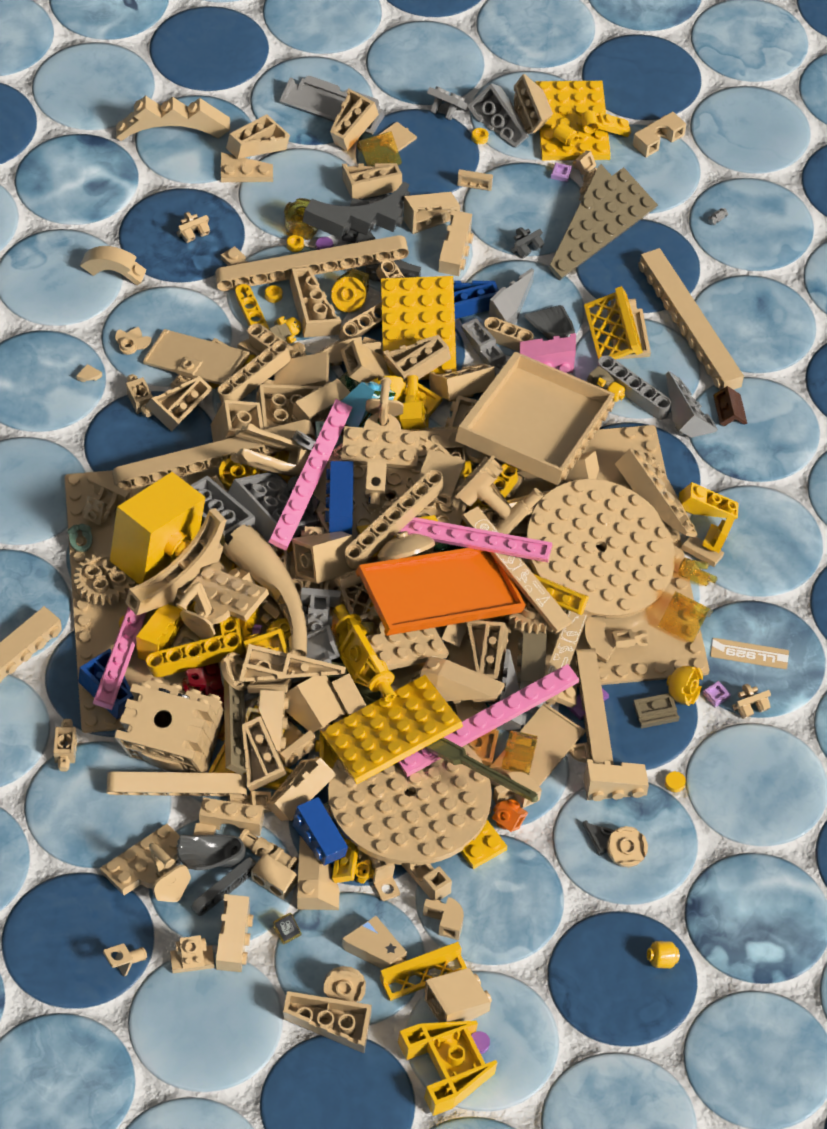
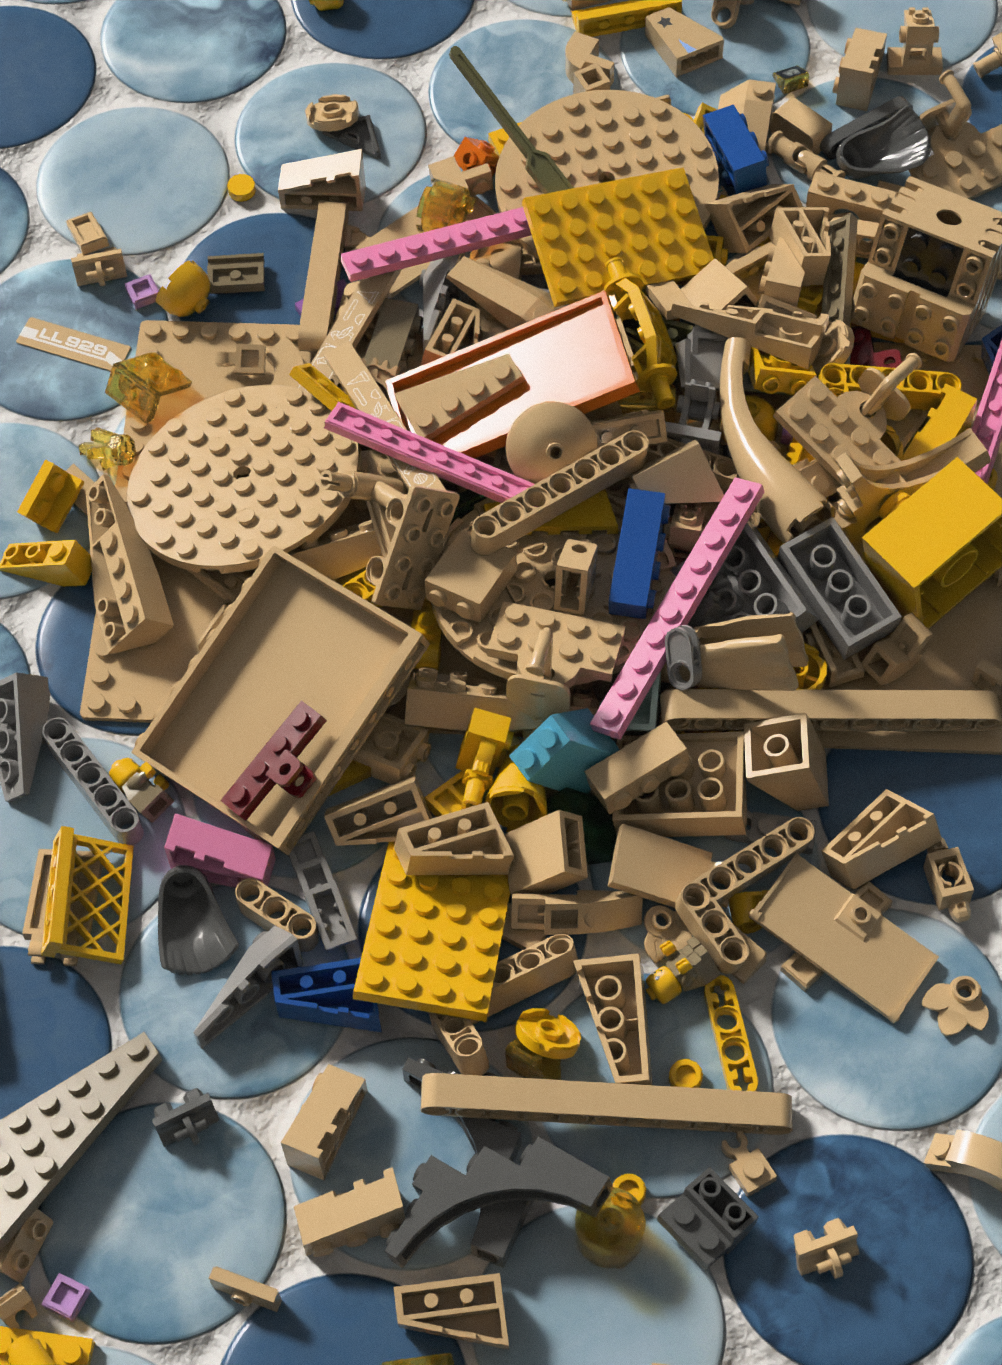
camera: 165 degrees left, 5 degrees up
(254, 228) = (708, 1219): none -> dark grey brick
(475, 583) = (453, 397): none -> tan wing
(525, 378) = (277, 763): none -> dark red plate
(770, 726) = (87, 233): none -> tan tile

